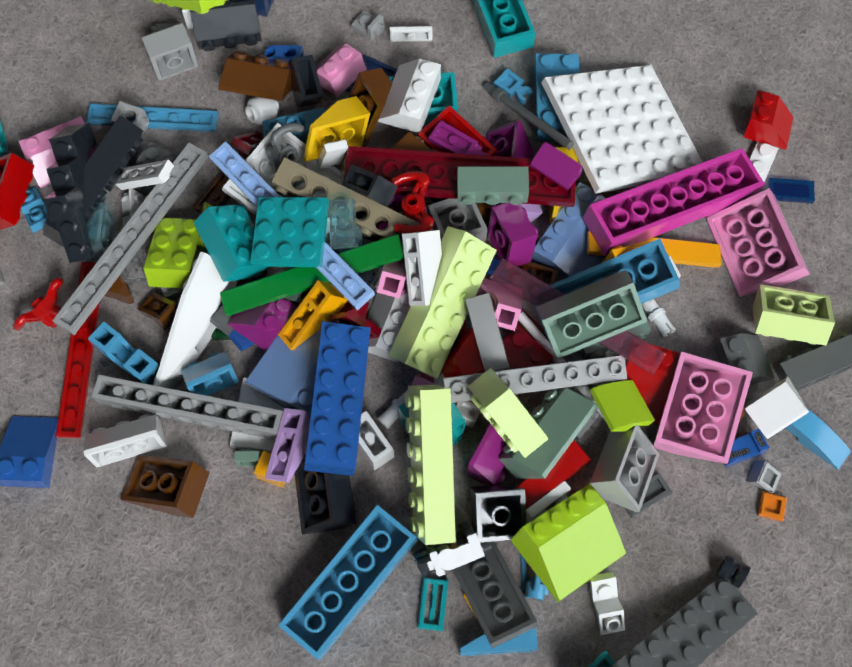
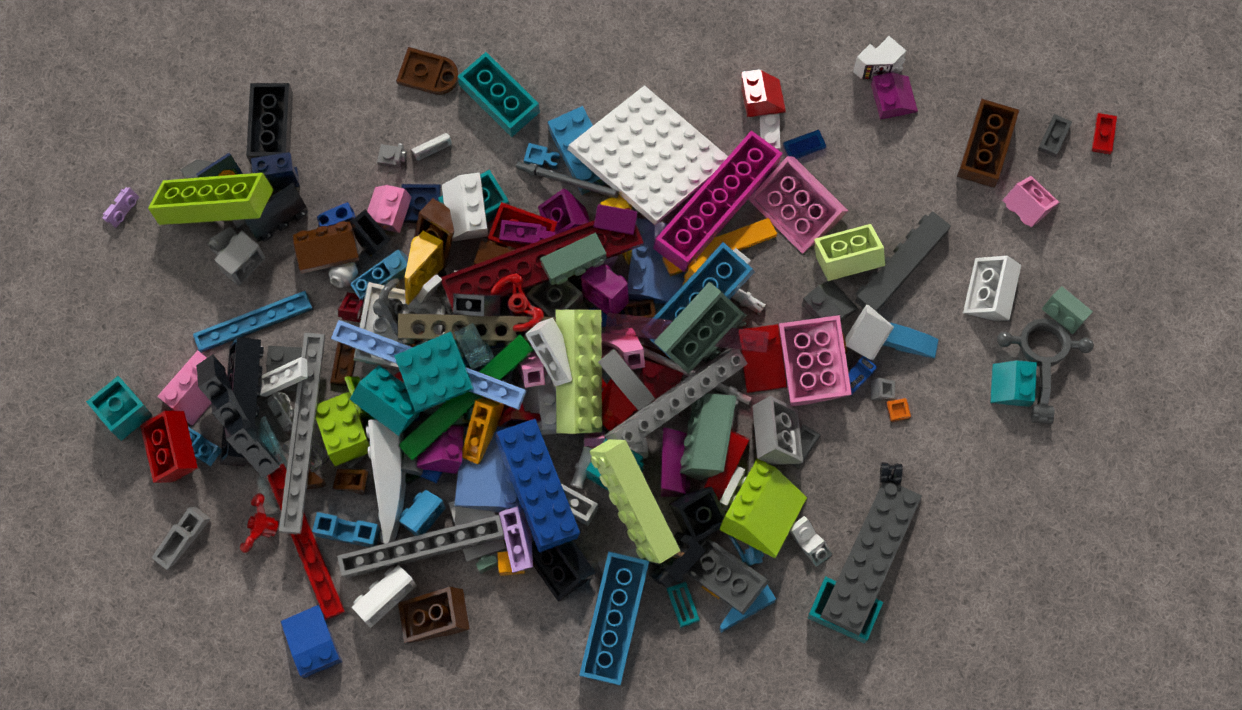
camera: 25 degrees left, 5 degrees up
(129, 111) = (232, 327): light grey brick -> none
(506, 413) = (673, 436): yellowish green brick -> none
(622, 405) = (753, 387): lime slope -> none

